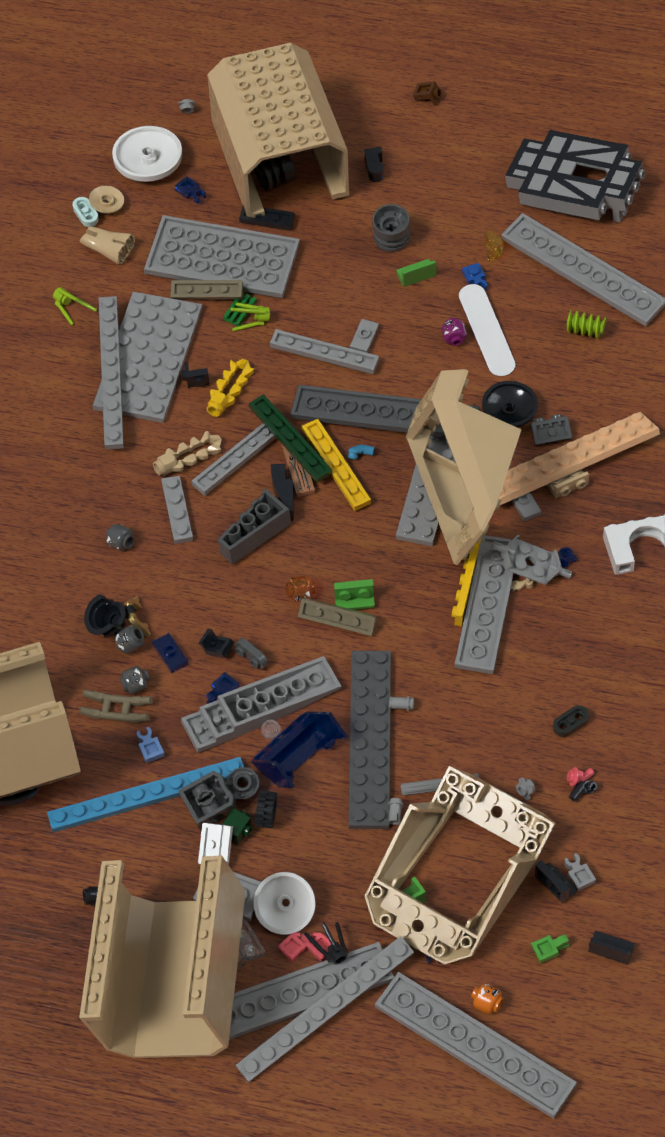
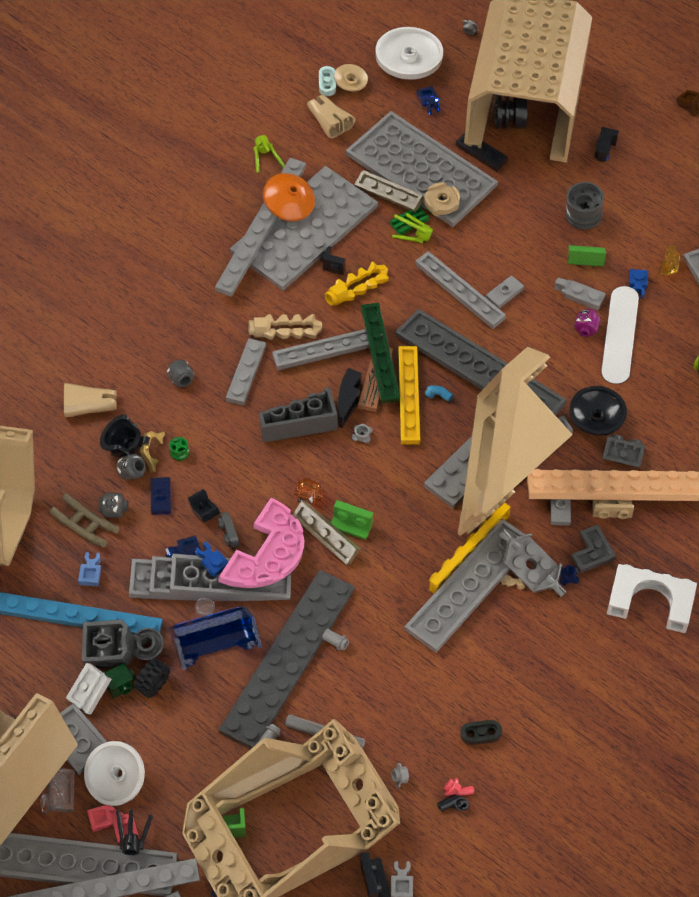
camera: 25 degrees right, 0 degrees up
(48, 600) = (86, 400): none -> tan piece
(121, 334) = (284, 202): none -> orange dish
(161, 604) = (175, 445): none -> green wheel
(258, 686) = (213, 561): none -> blue plate
(264, 284) = (438, 206): none -> tan plate
(309, 651) = (277, 555): none -> bright pink plate
(315, 512) = (362, 428): none -> light grey plate
(430, 308) = (580, 293): none -> light grey hinge
(577, 525) = (597, 551): none -> dark grey plate

